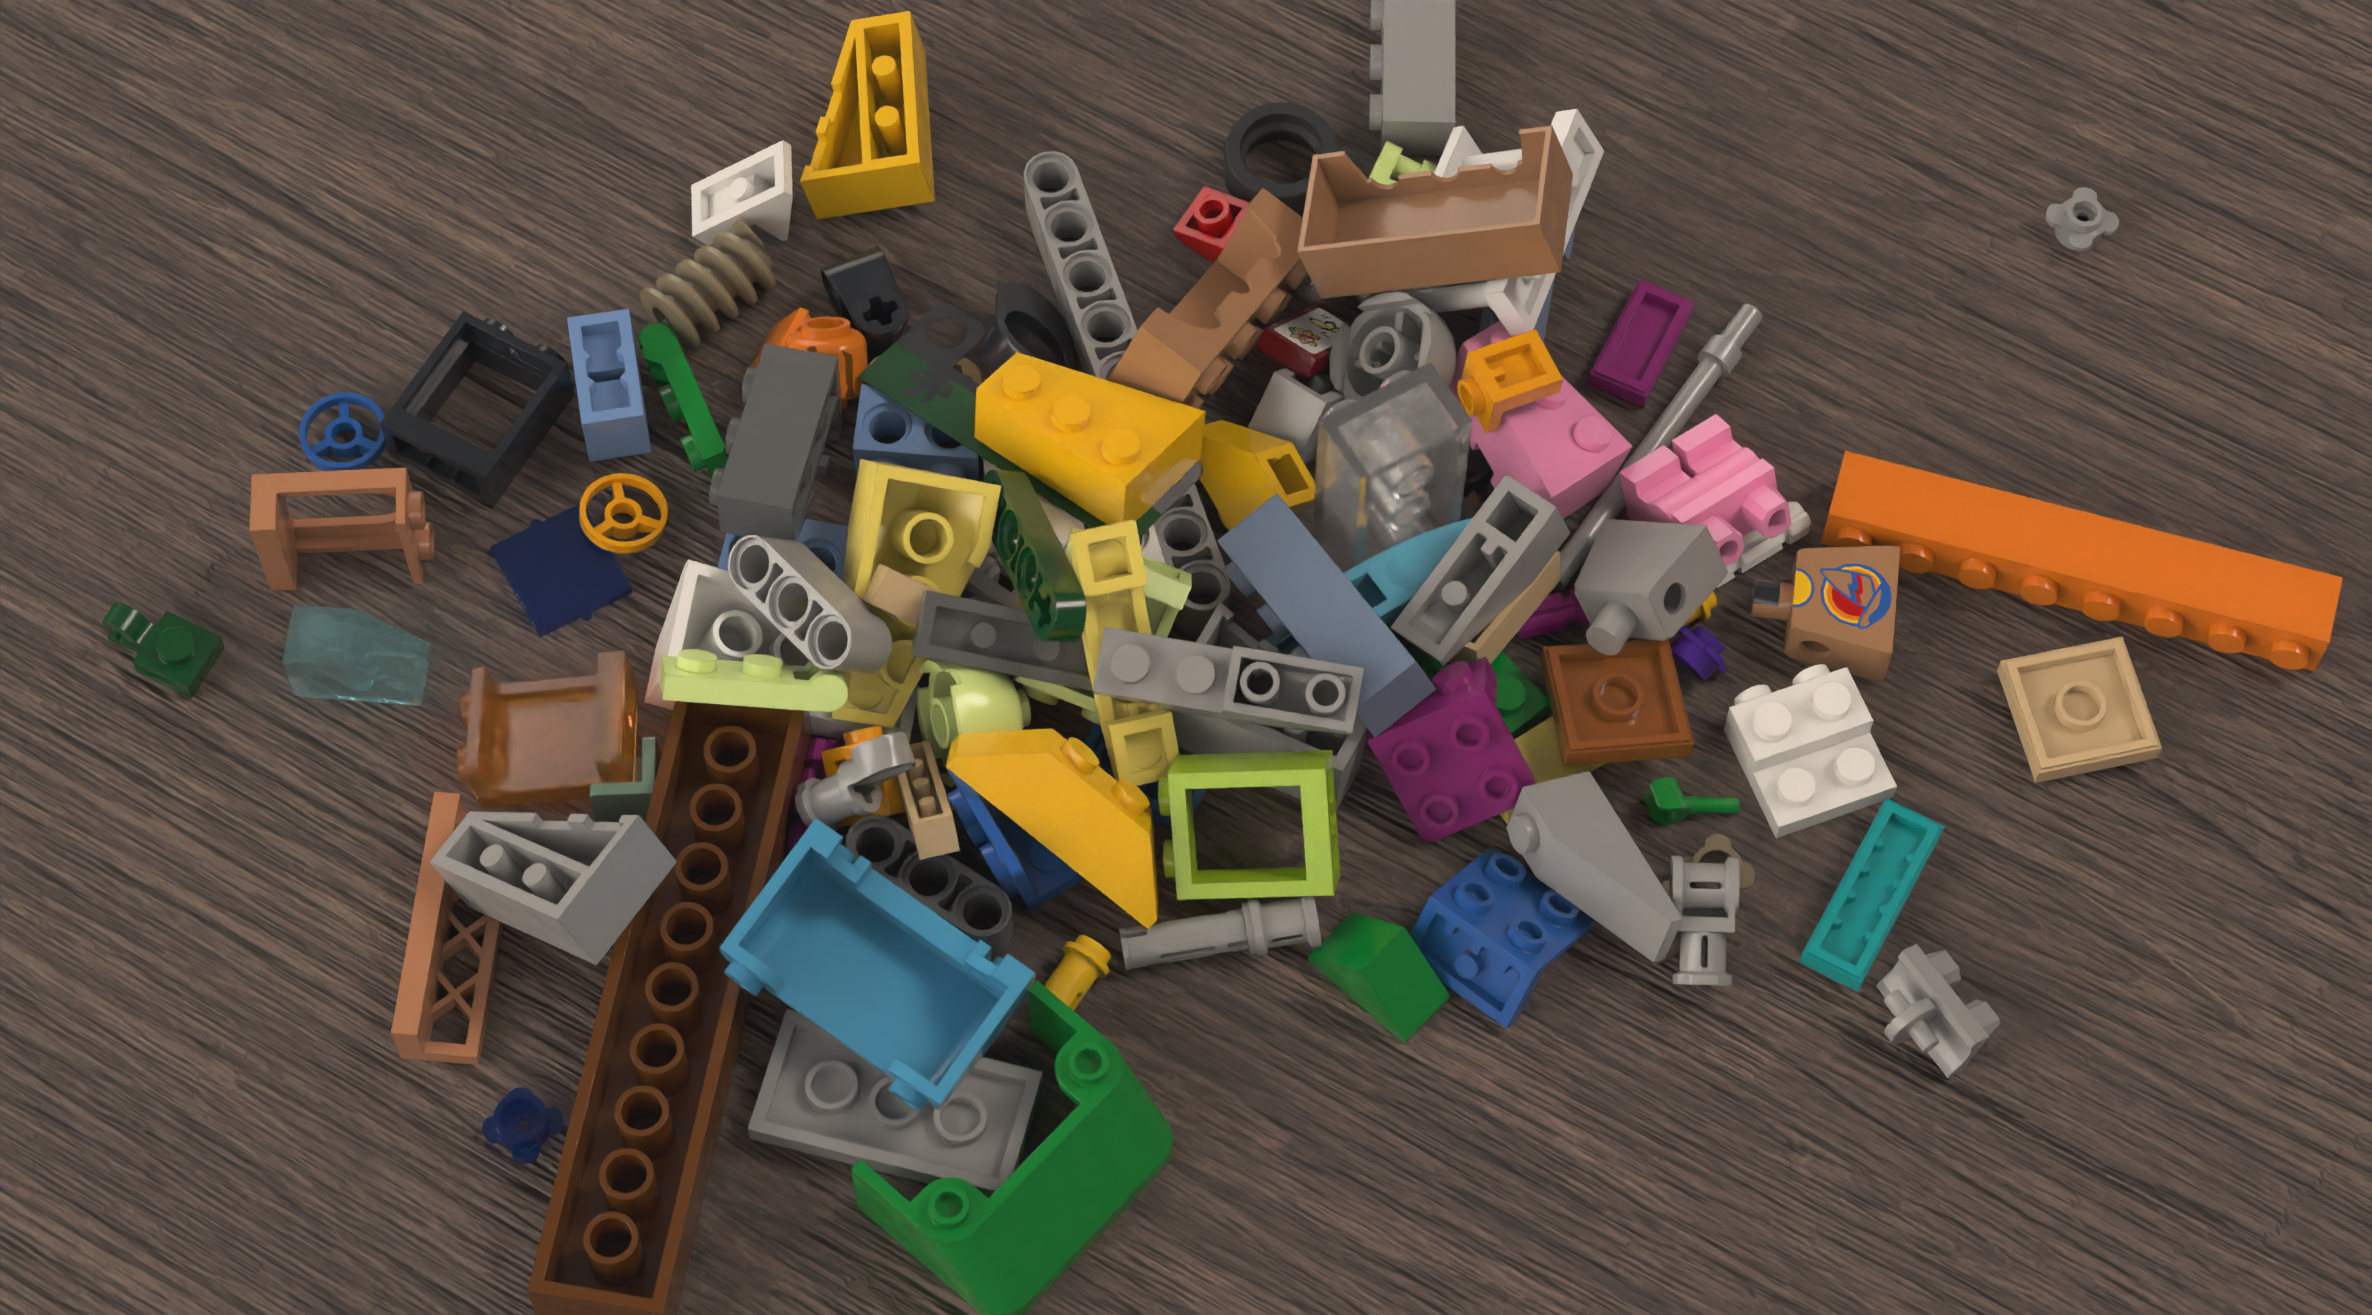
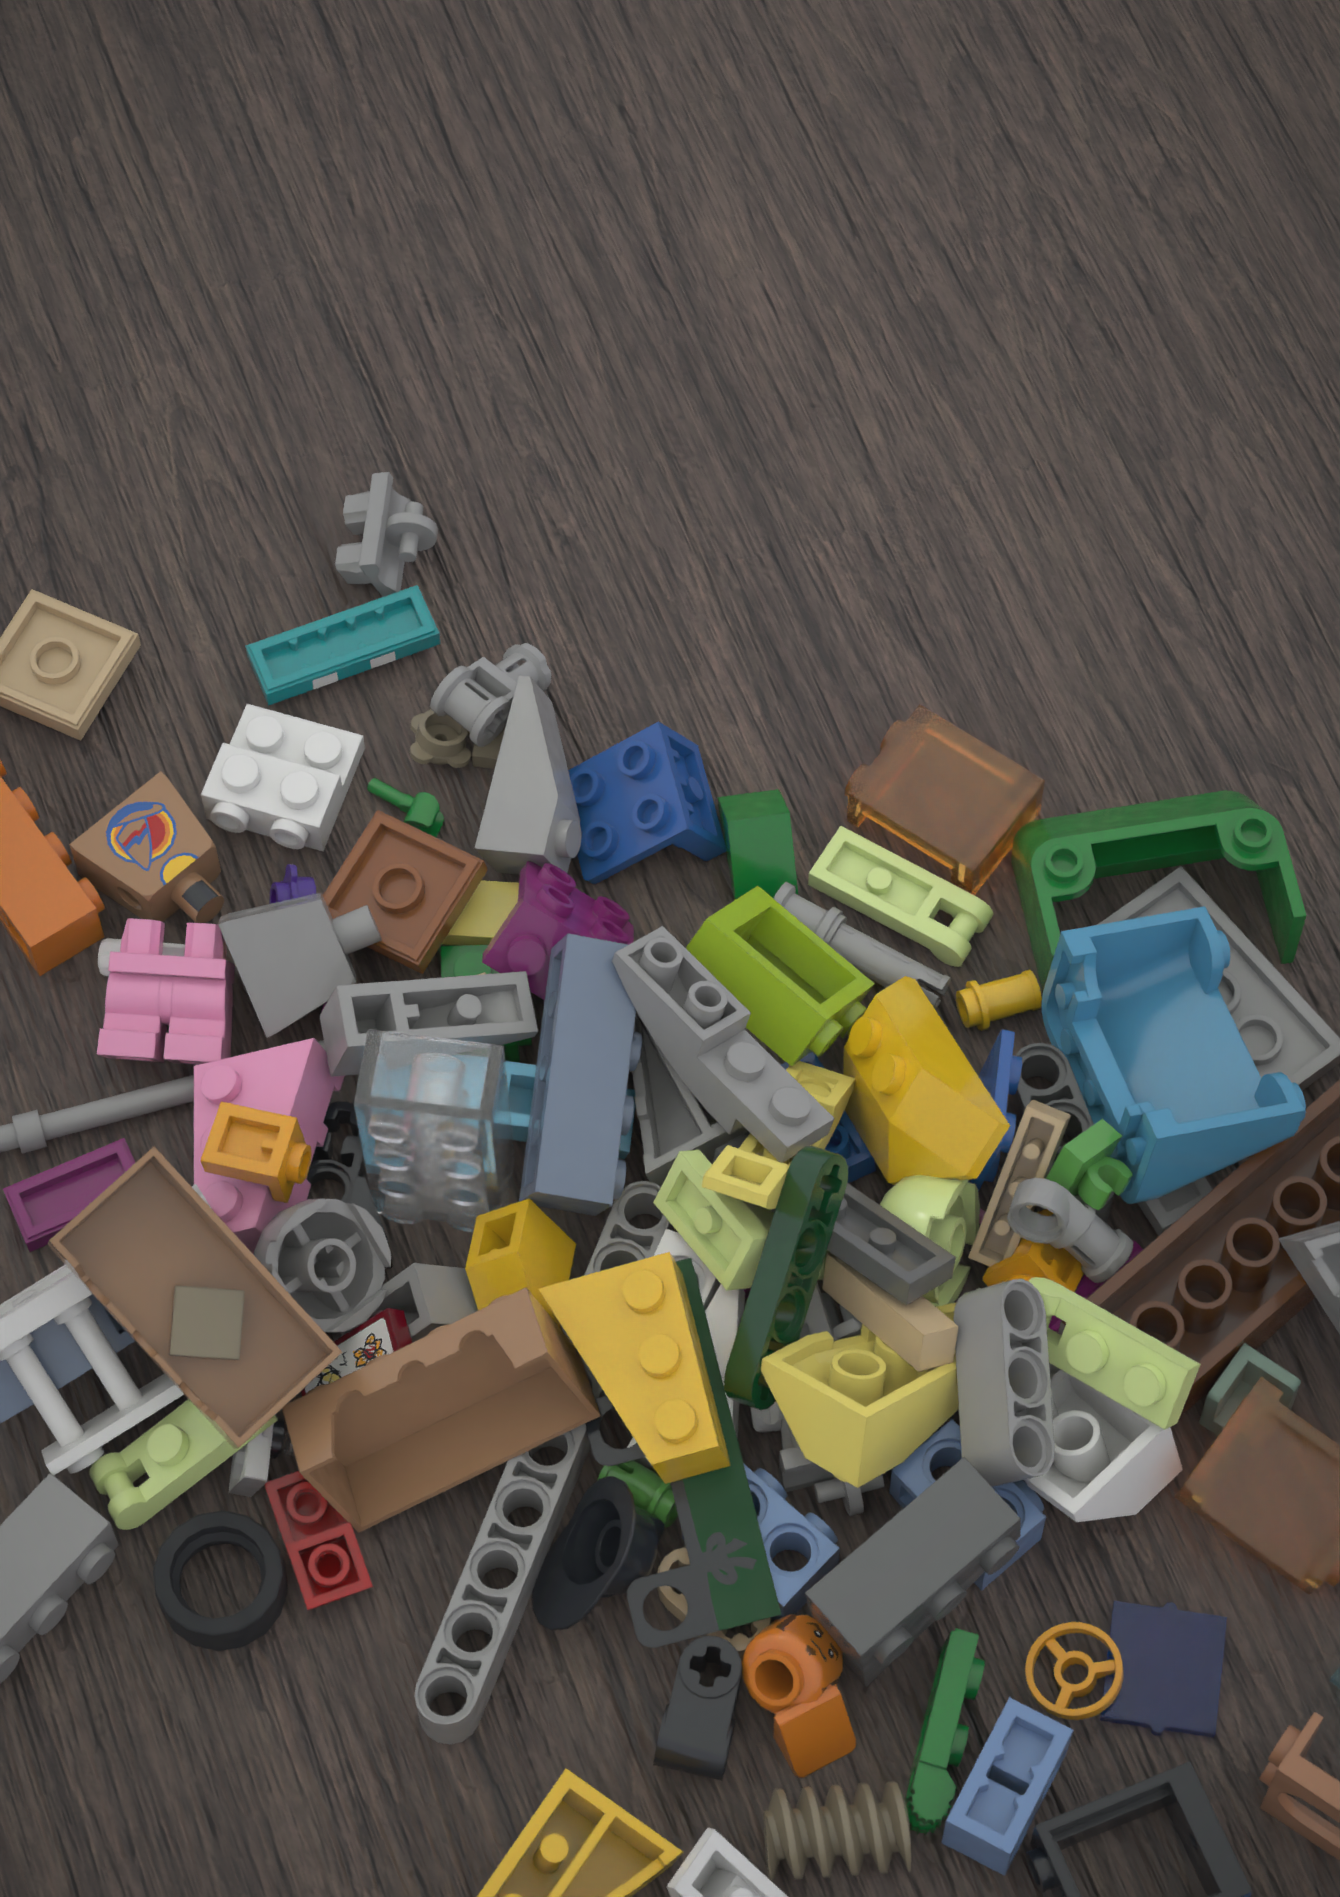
camera: 140 degrees left, 0 degrees up
(877, 819) = (1089, 1169): none -> bright green tile
(1225, 1008) = (899, 895): none -> yellowish green plate
(1256, 1108) = (945, 796): none -> clear orange panel
(1417, 212) = (206, 1322): none -> dark tan tile

